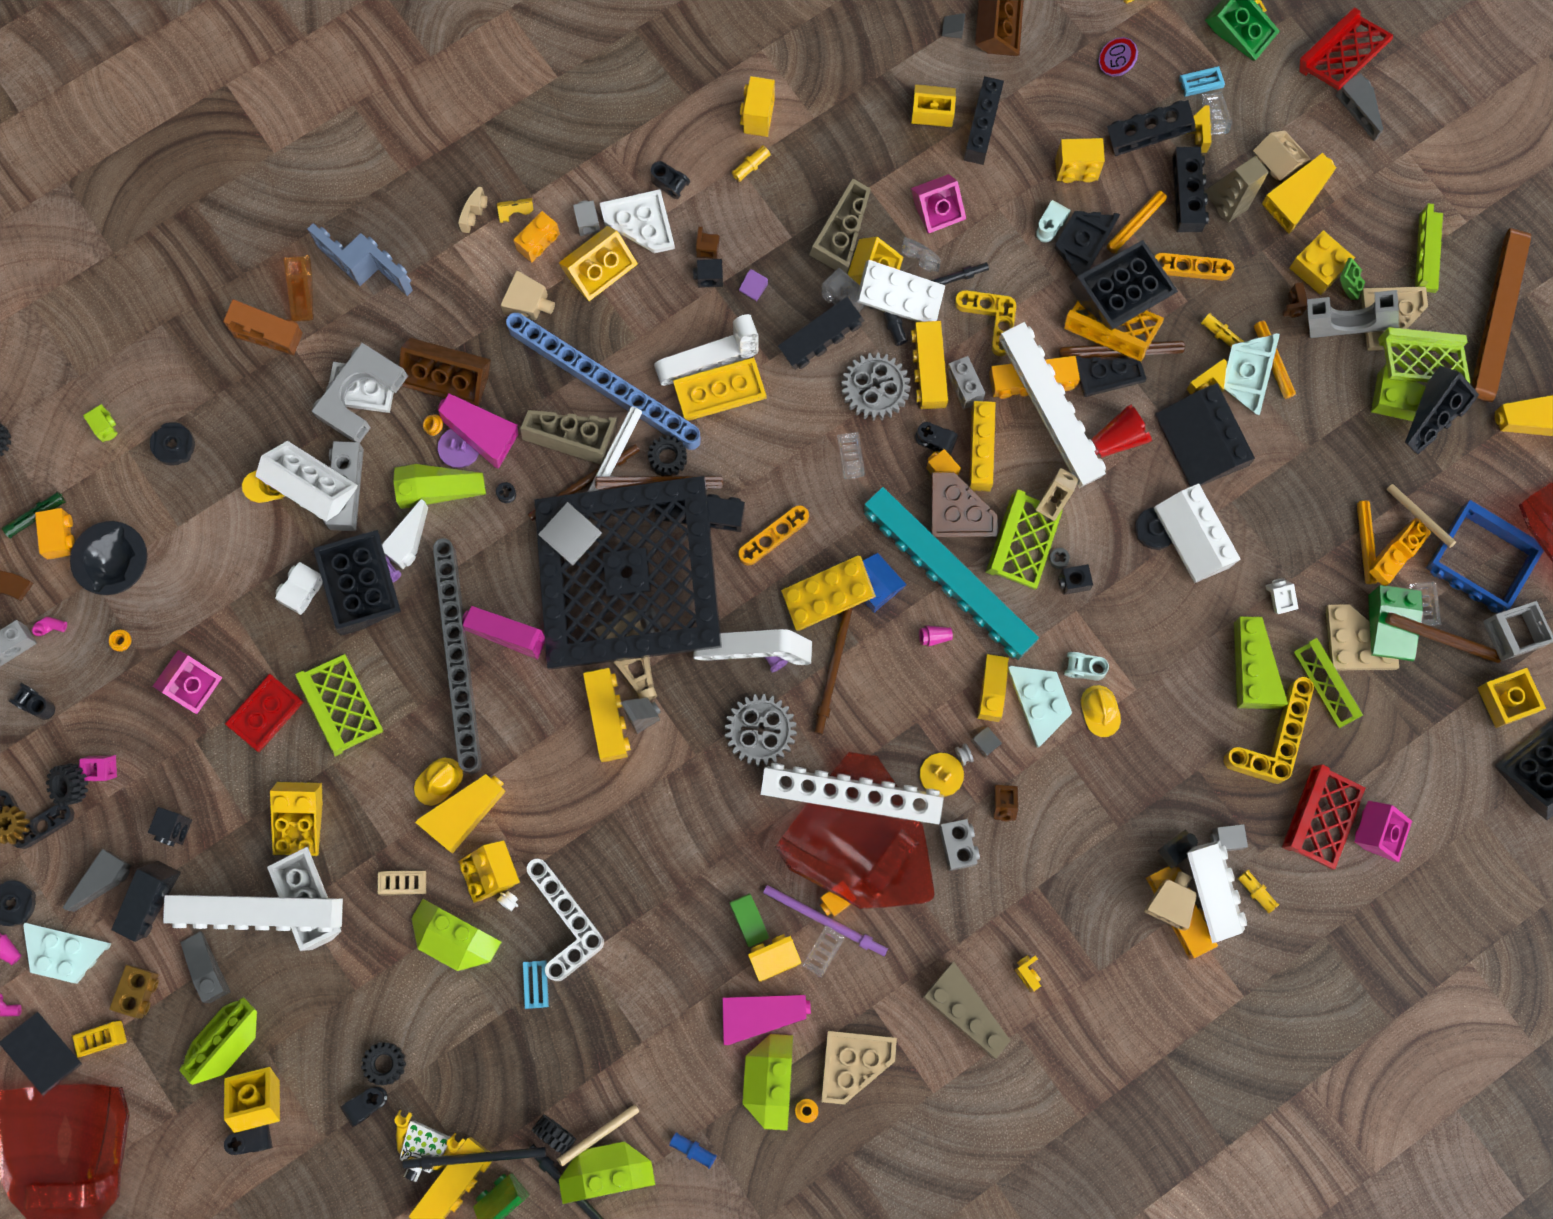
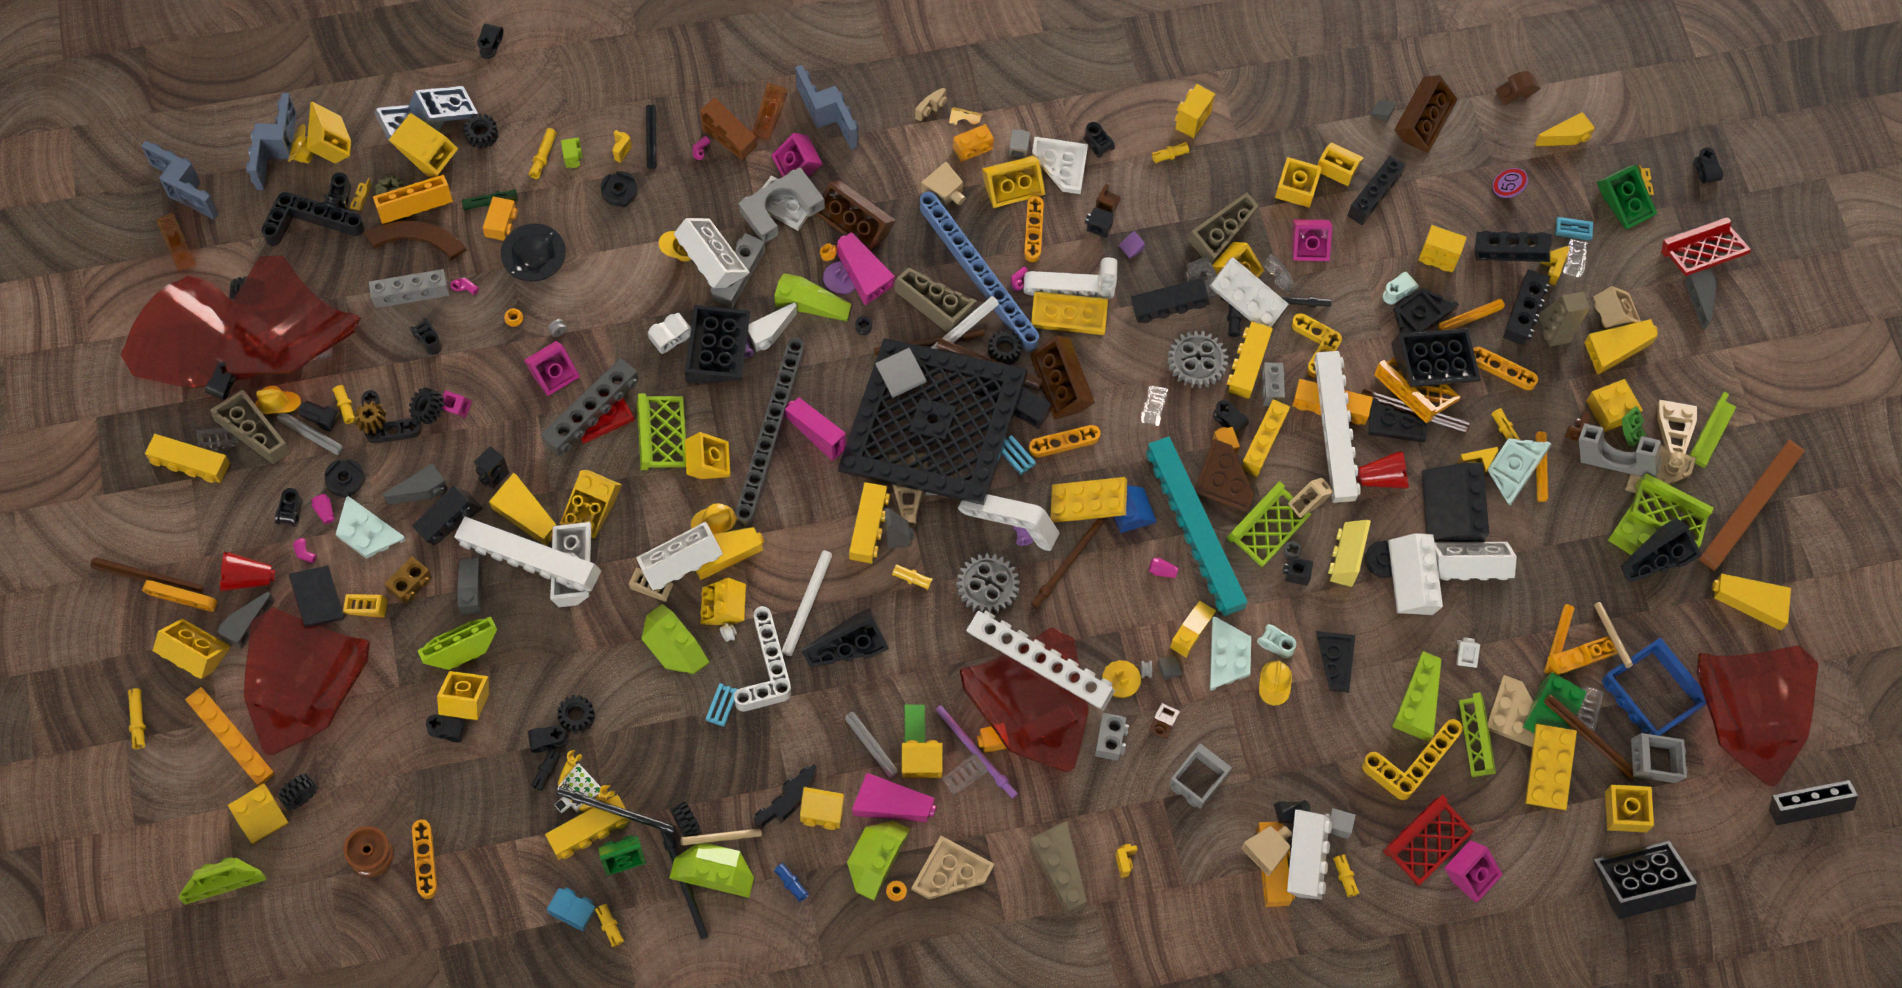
camera: 20 degrees right, 10 degrees down
(69, 443) = (540, 158): none -> yellow pin
(155, 395) = (622, 145): none -> yellow bracket
(173, 633) = (557, 328): none -> light grey bush
(182, 368) = (651, 153): none -> black axle
(224, 857) = (522, 509): none -> yellow slope
(240, 362) = (698, 148): none -> dark pink arm
(245, 699) = (591, 397): none -> dark grey brick
(351, 327) = (797, 153): none -> dark pink slope
(377, 1140) = (545, 770): none -> black pin
(401, 713) = (707, 456): none -> yellow slope
(419, 843) = (679, 556): none -> white slope
(578, 836) = (806, 603): none -> white axle
(639, 309) = (1033, 229): none -> light orange beam
(643, 851) = (851, 639): none -> black wedge
(647, 372) = (1016, 279): none -> dark pink arm
(655, 1050) = (785, 806): none -> black slope
(677, 755) = (912, 576): none -> yellow pin
(692, 1058) = (822, 808): none -> yellow slope
(712, 960) = (871, 744): none -> light grey axle
(717, 557) = (1020, 449): none -> medium azure tile
(742, 465) = (1062, 377): none -> reddish brown slope
(900, 144) = (1298, 182): none -> yellow brick
(1076, 828) = (1209, 760): none -> light grey window
(1120, 537) = (1349, 552): none -> light yellow slope
(1154, 659) = (1337, 659): none -> black wing
(1250, 491) = (1475, 560): none -> white slope
(1391, 243) = (1678, 413): none -> tan plate
(1416, 686) = (1550, 767): none -> yellow plate

